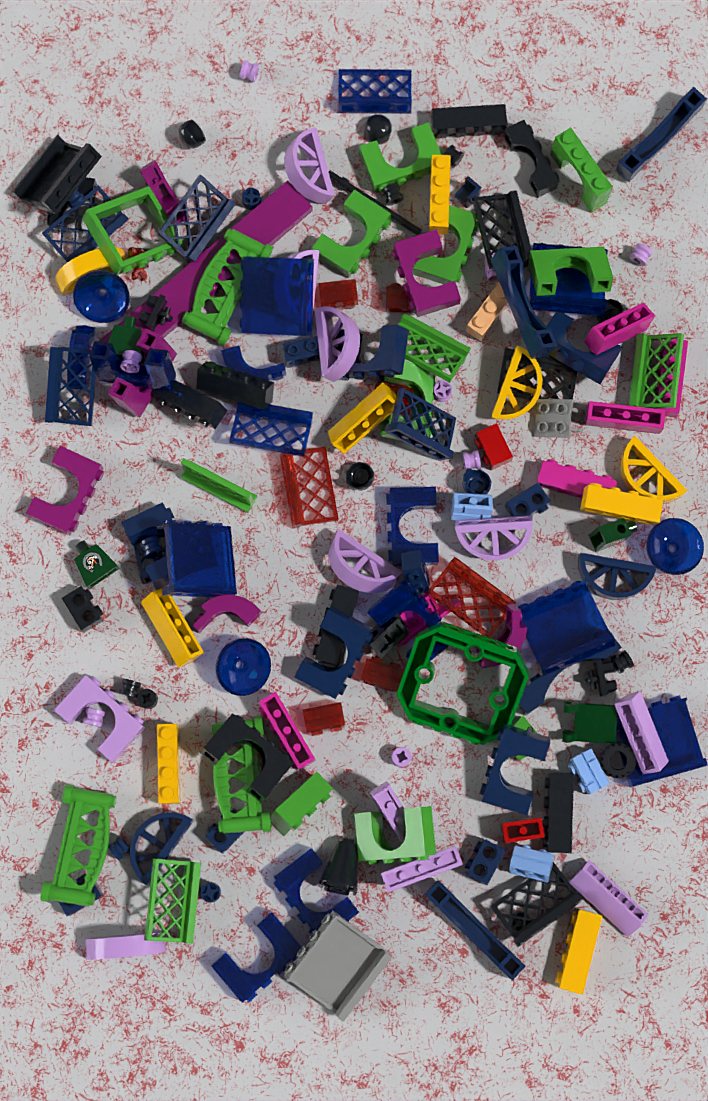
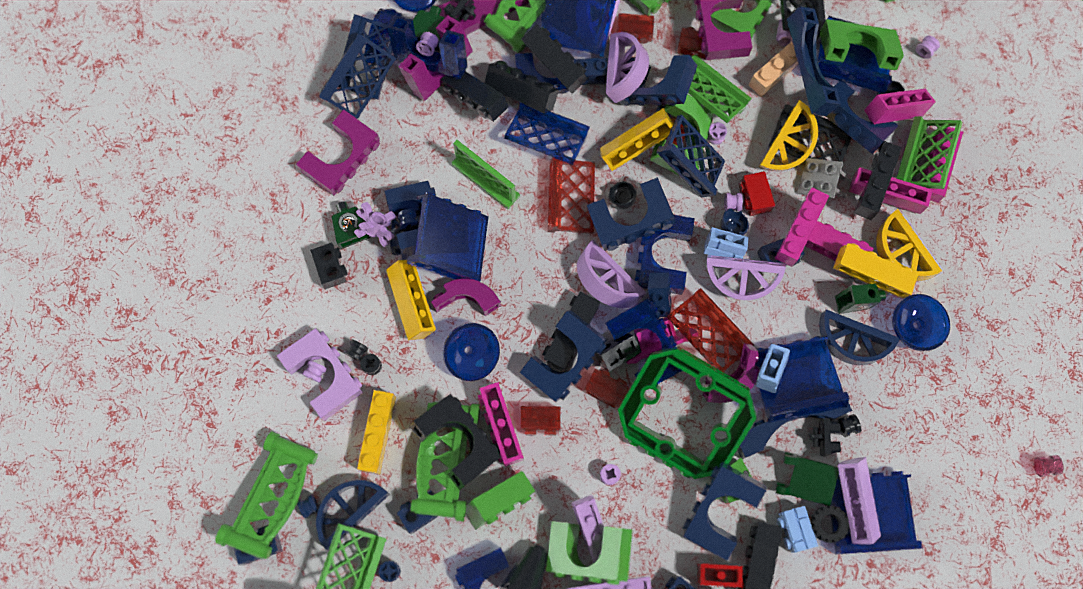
camera: 10 degrees right, 5 degrees down
(50, 403) = (343, 67): none -> dark blue fence
(120, 559) = (375, 224): none -> lavender pin
(263, 349) = (554, 58): none -> black brick
(398, 495) = (657, 217): none -> dark blue arch
(537, 623) = (772, 368): none -> light blue brick
(542, 475) = (802, 227): none -> dark pink brick
(610, 411) = (876, 187): none -> black arch

